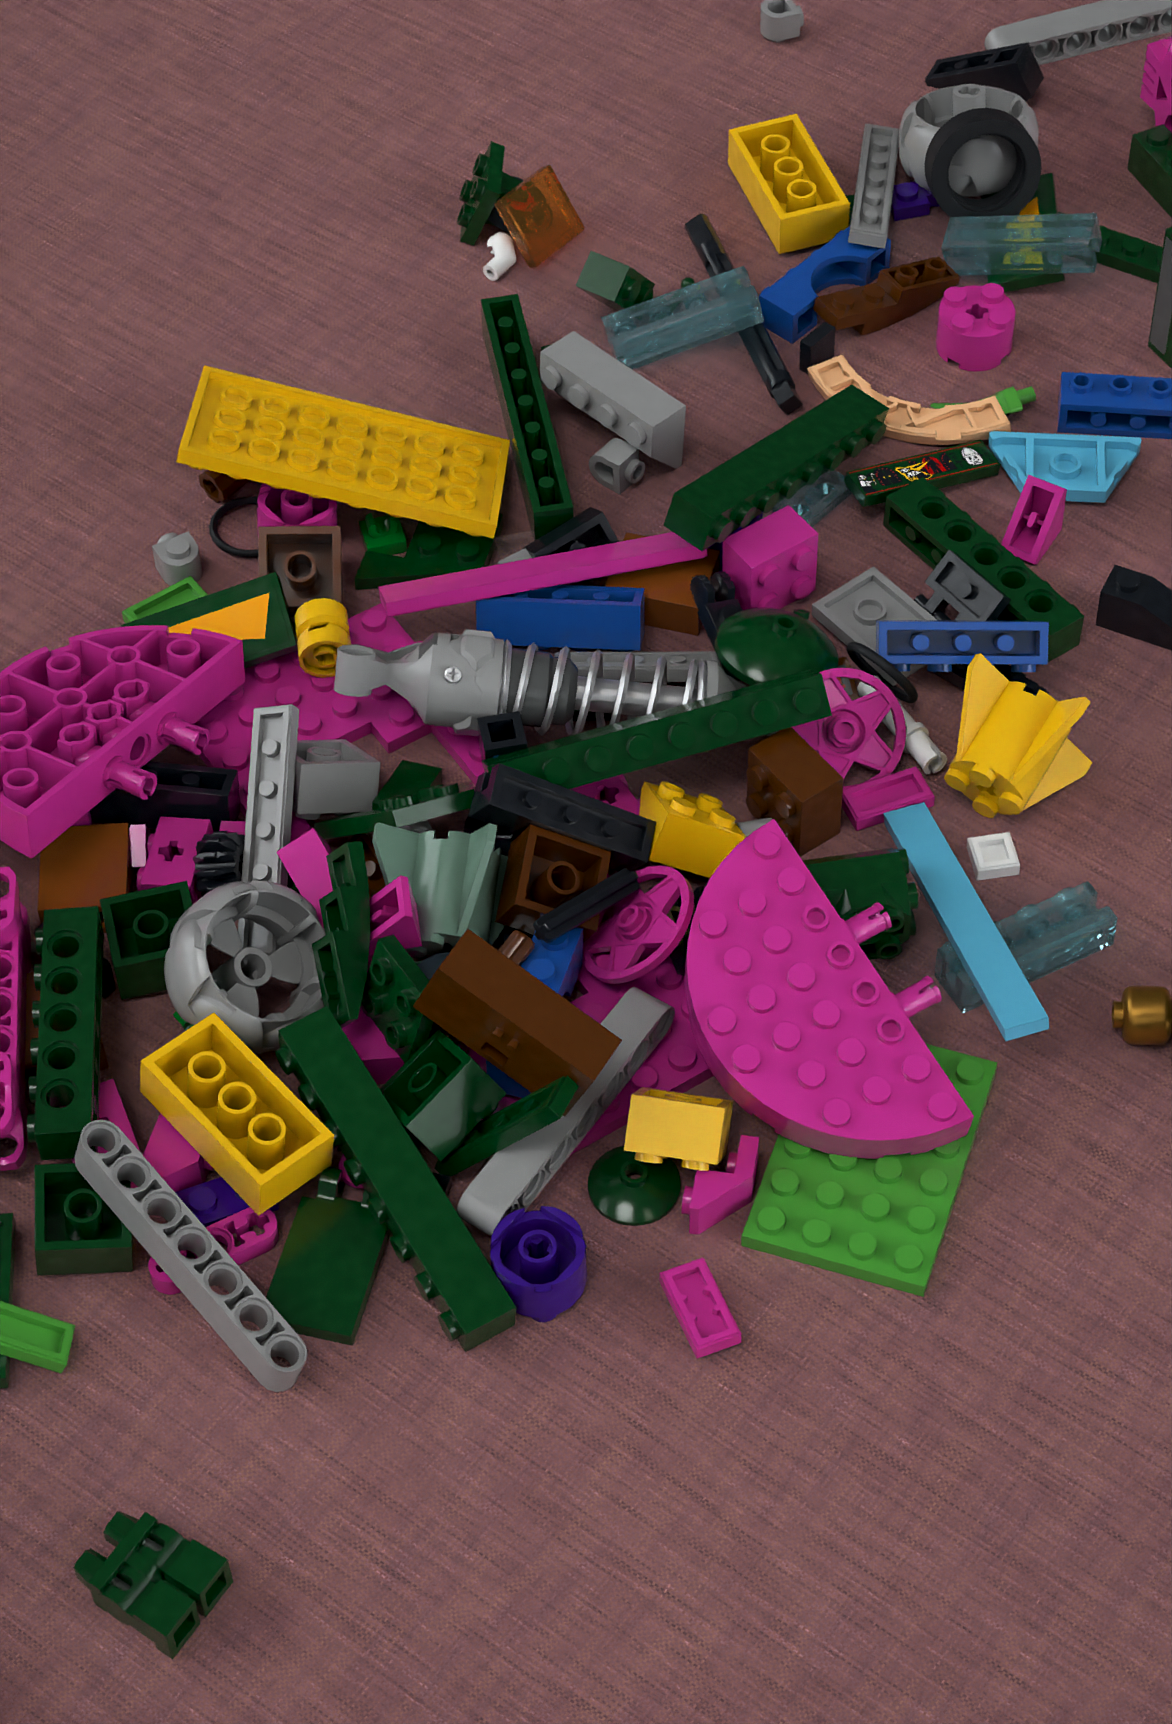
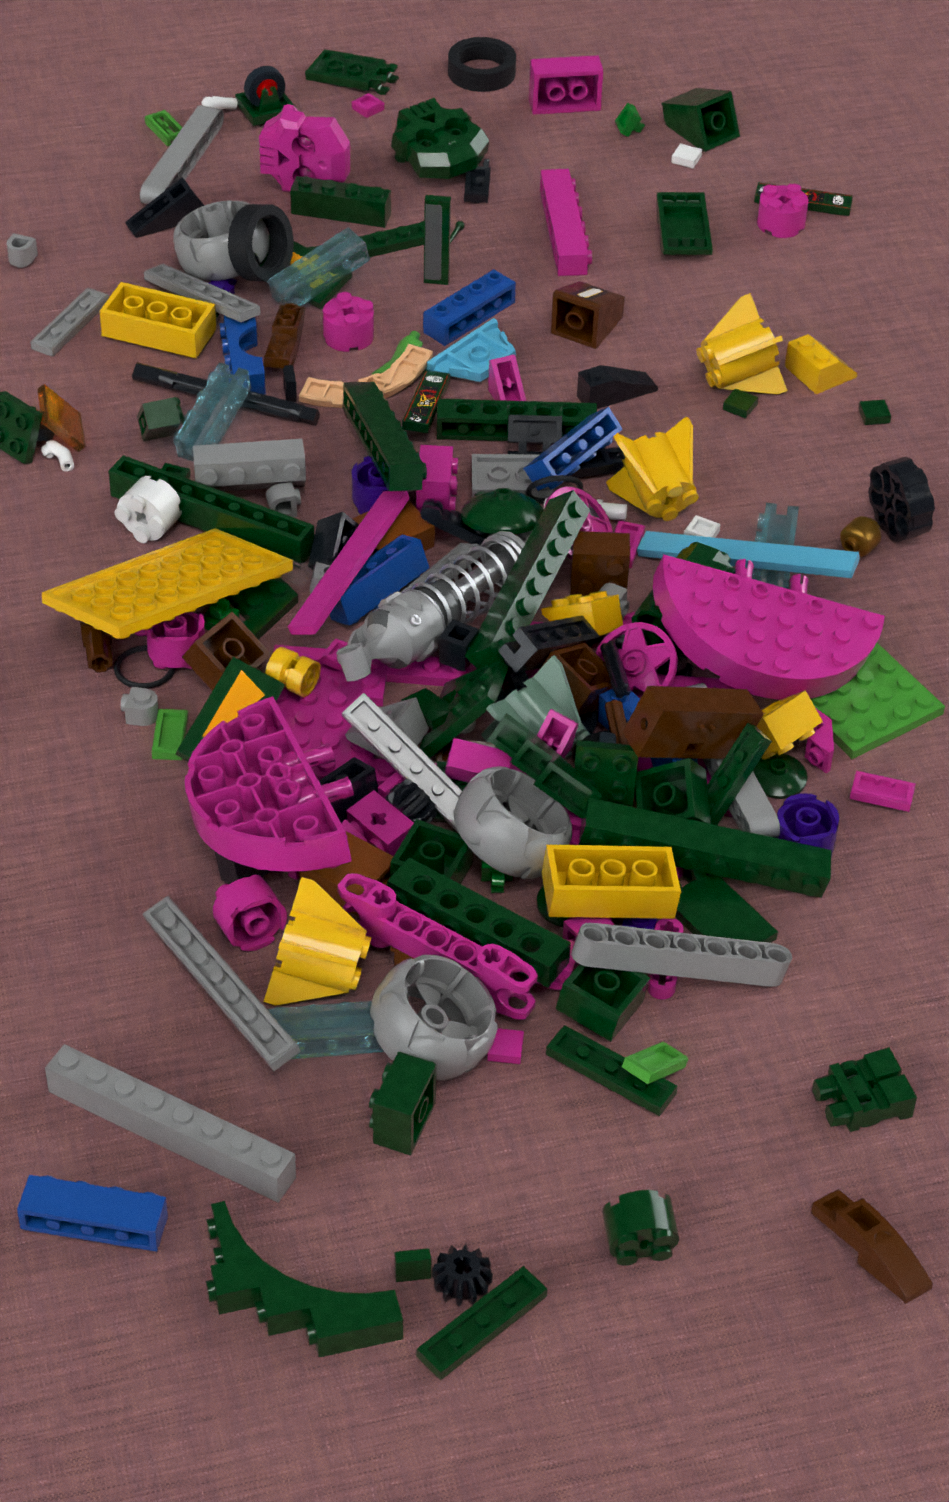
camera: 55 degrees left, 5 degrees down
(468, 369) = (148, 509): none -> white brick
(708, 128) = (69, 322): none -> light grey tile

